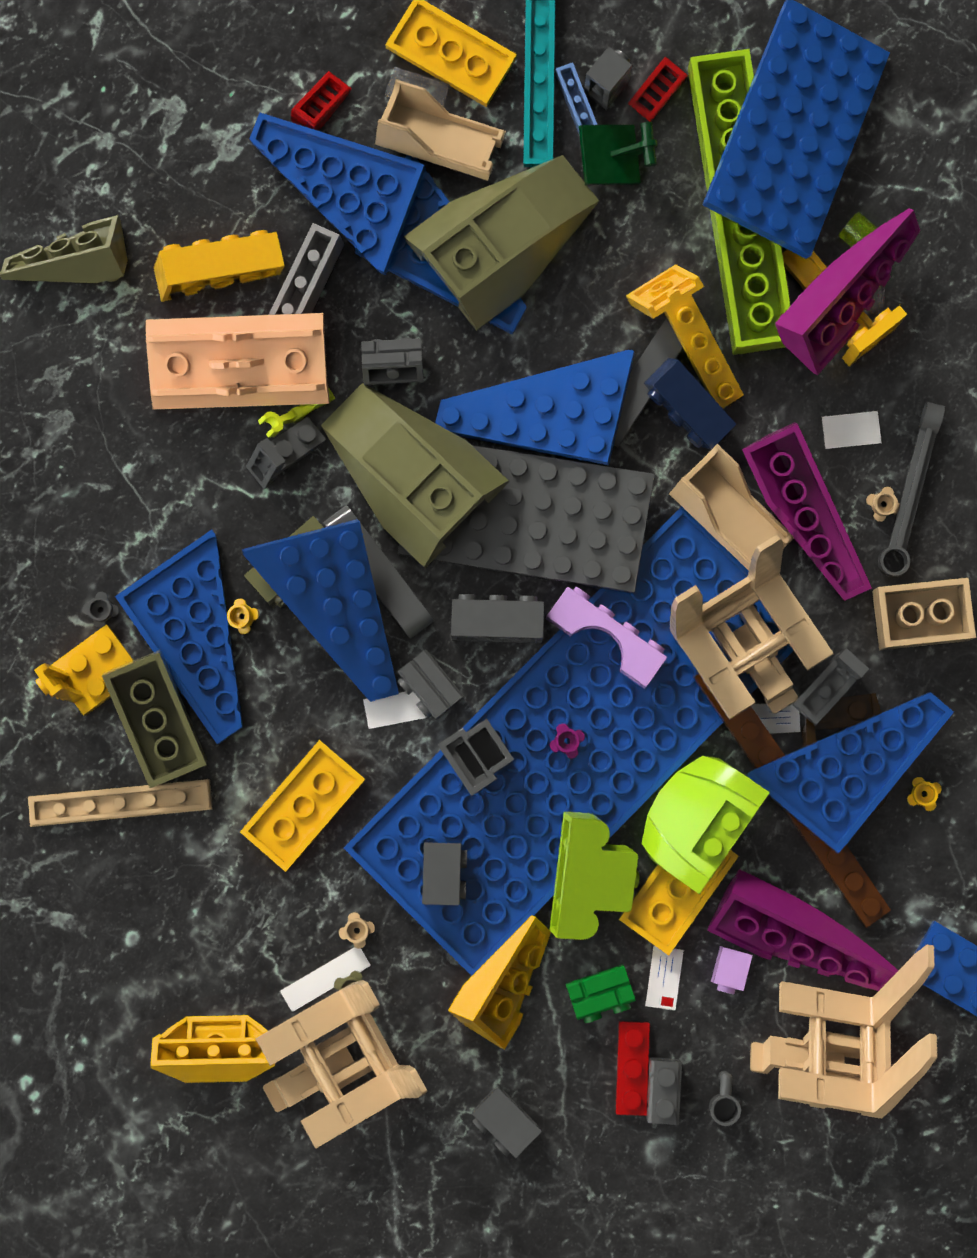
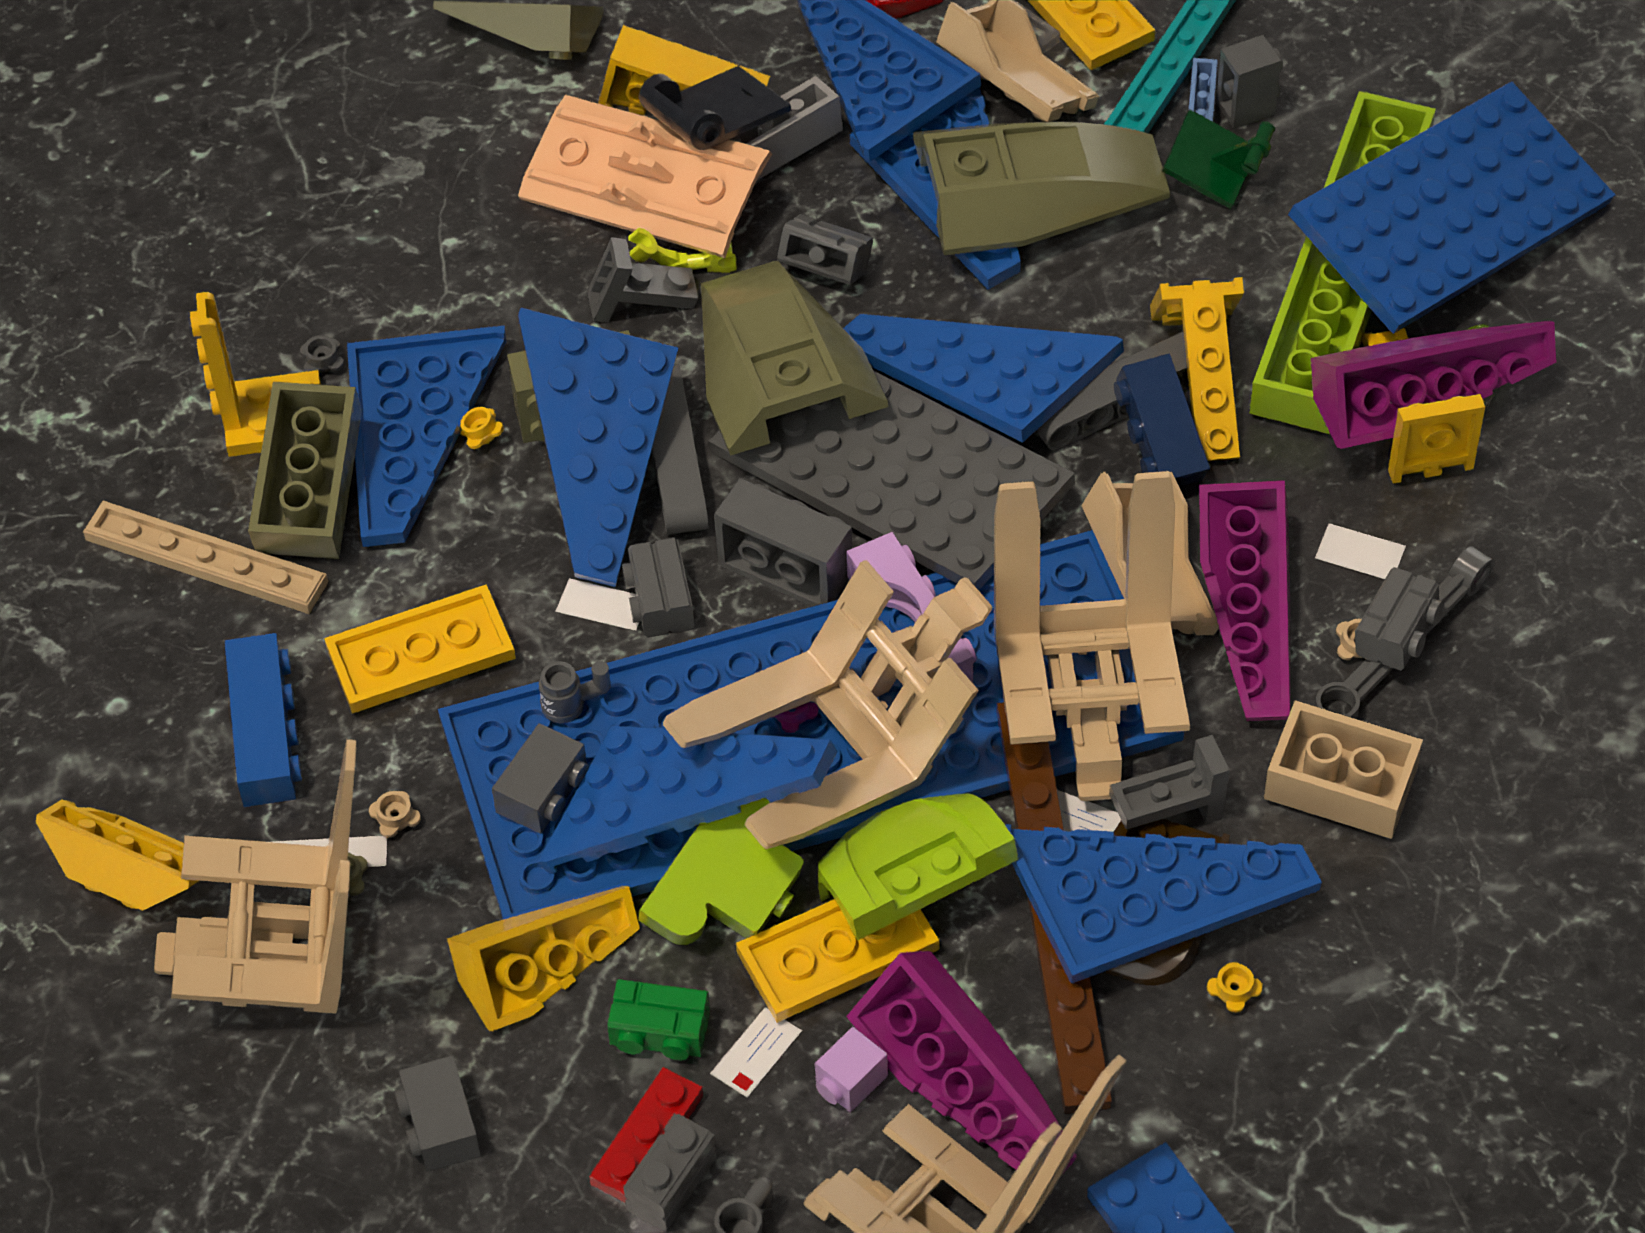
camera: 30 degrees right, 30 degrees down
(234, 908) = (260, 719): none -> blue brick
(263, 295) = (713, 108): none -> black door
(420, 804) = (564, 695): none -> dark grey piece
(476, 755) = (666, 662): dark grey plate -> none
(530, 846) = (651, 784): none -> blue wing
(594, 715) = (892, 743): none -> tan piece
(667, 65) = (1314, 111): red slope -> none
(911, 489) = (1398, 619): none -> dark grey brick

